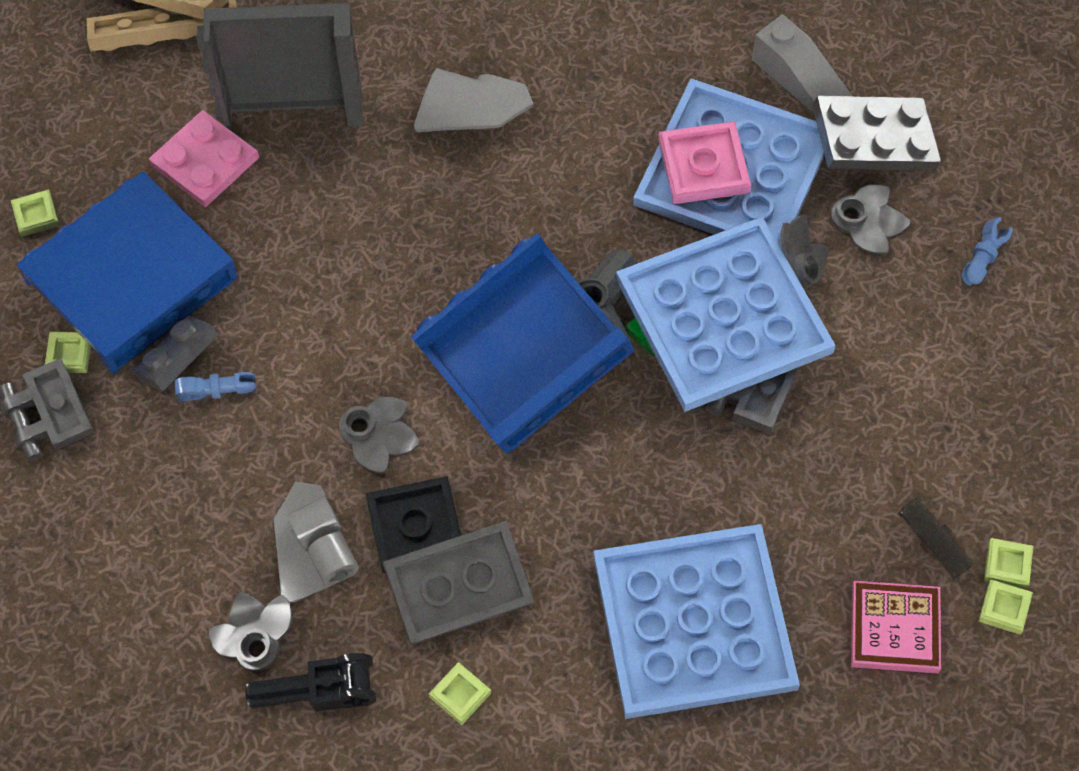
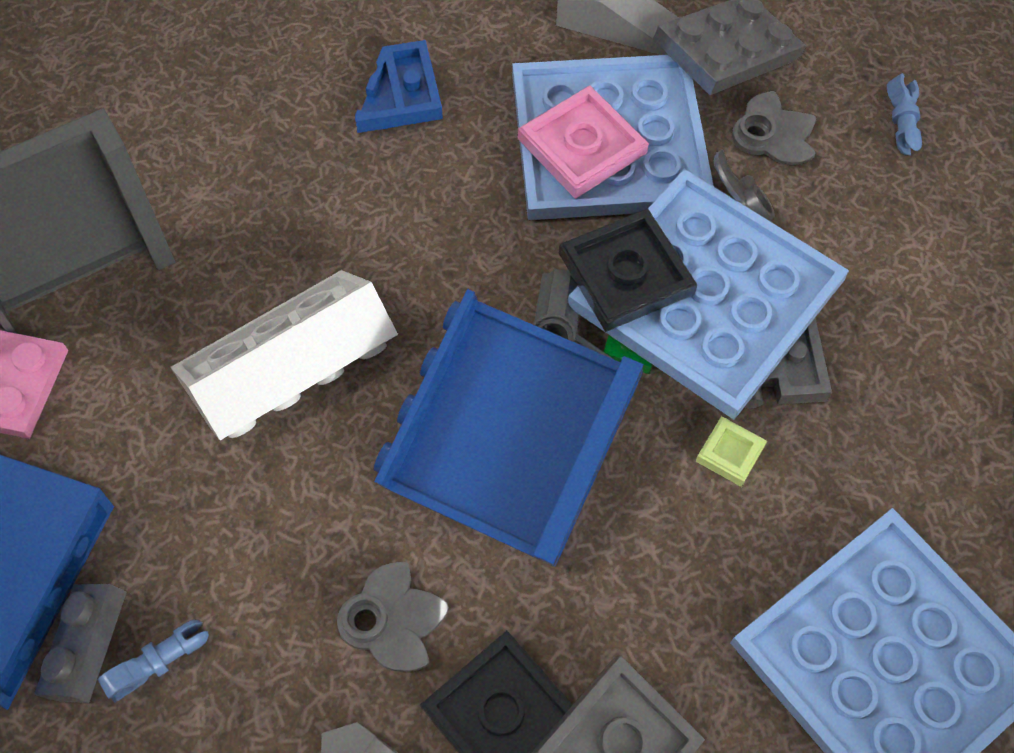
camera: 30 degrees left, 0 degrees up
(402, 224) = (285, 353): none -> white slope
(470, 103) = (289, 185): light grey panel -> none
(595, 63) = (400, 89): none -> blue wing
(668, 271) = (627, 269): none -> black tile
(676, 436) = (731, 451): none -> yellowish green tile

